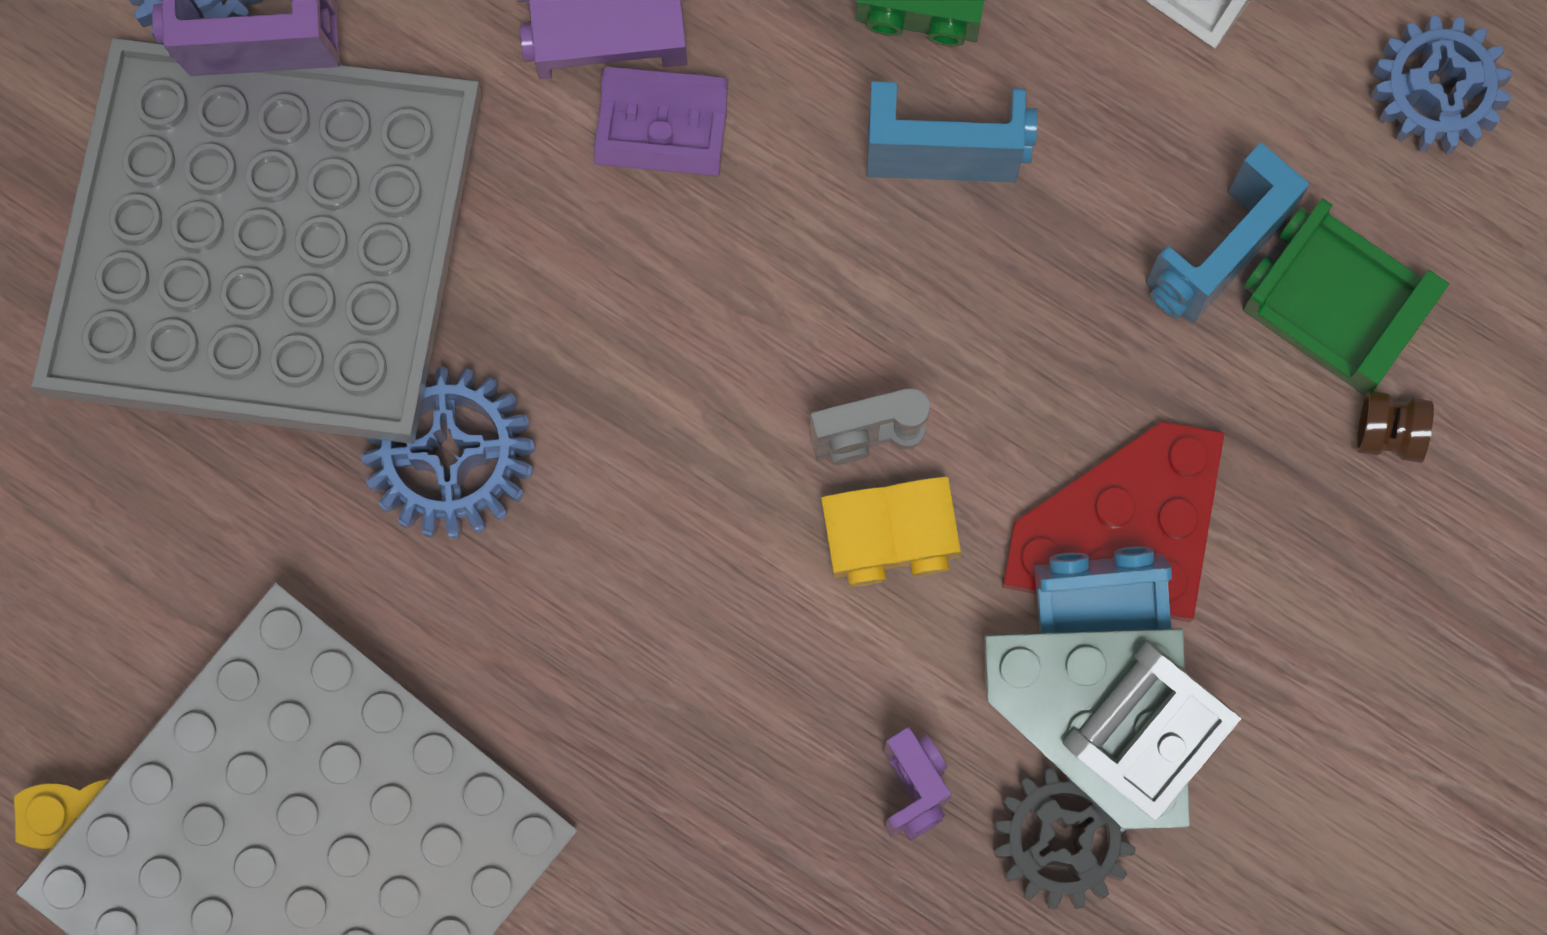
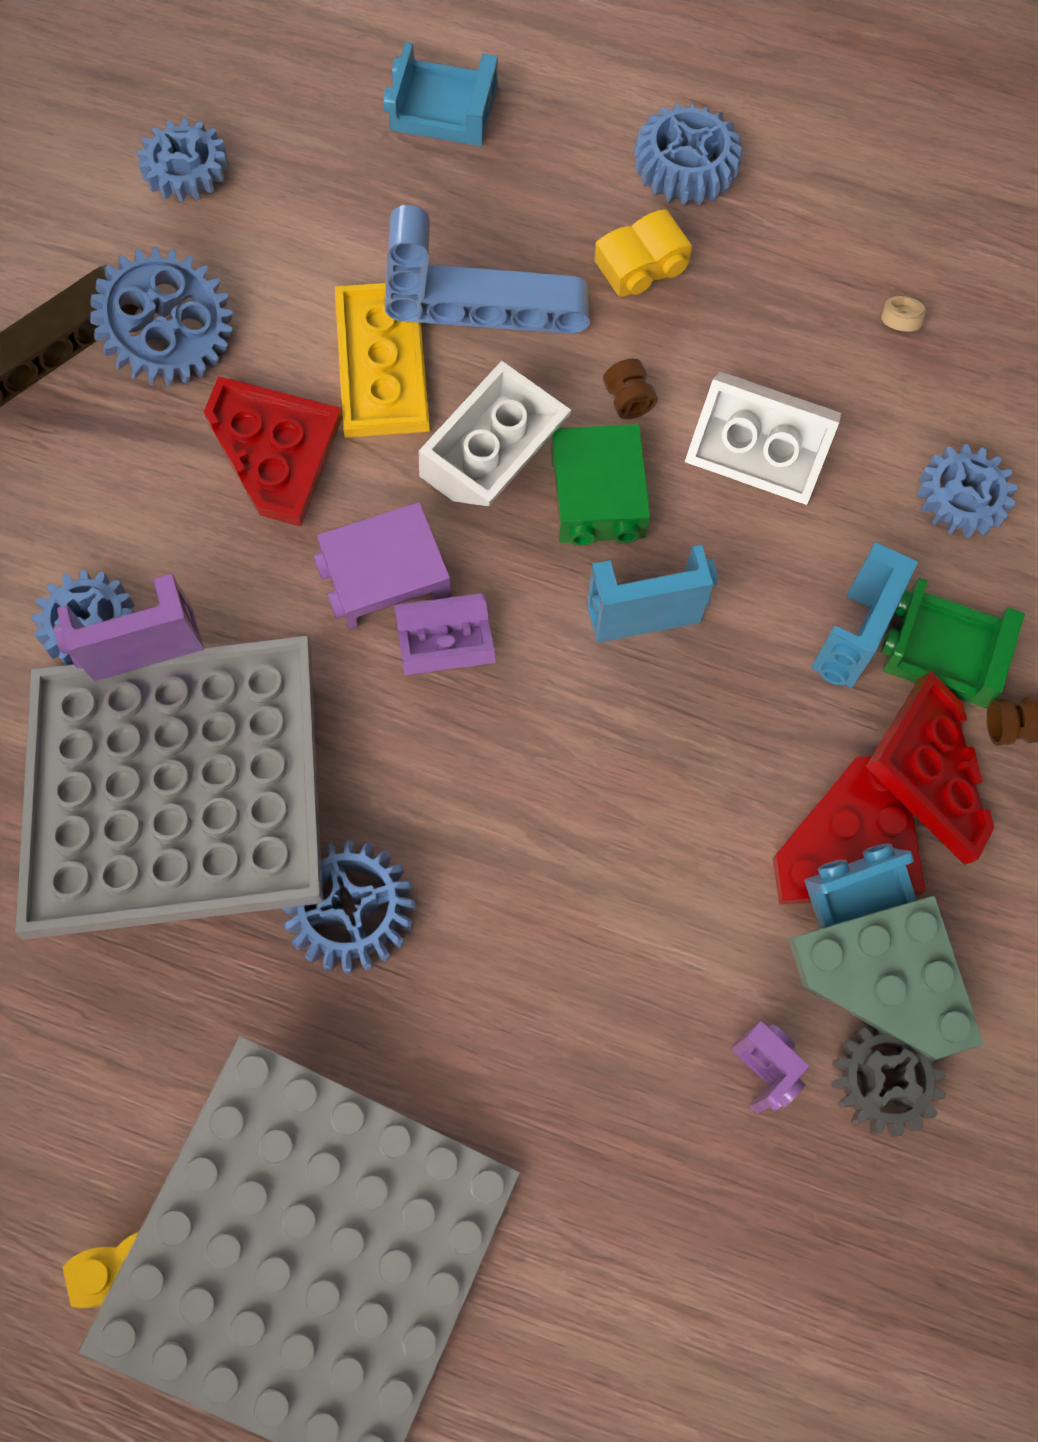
camera: 20 degrees left, 10 degrees down
(851, 428) = (663, 801): light grey plate -> none
(891, 529) = (691, 880): yellow brick -> none
(1167, 746) = (956, 983): plate -> none
(1258, 462) = (932, 769): none -> red plate

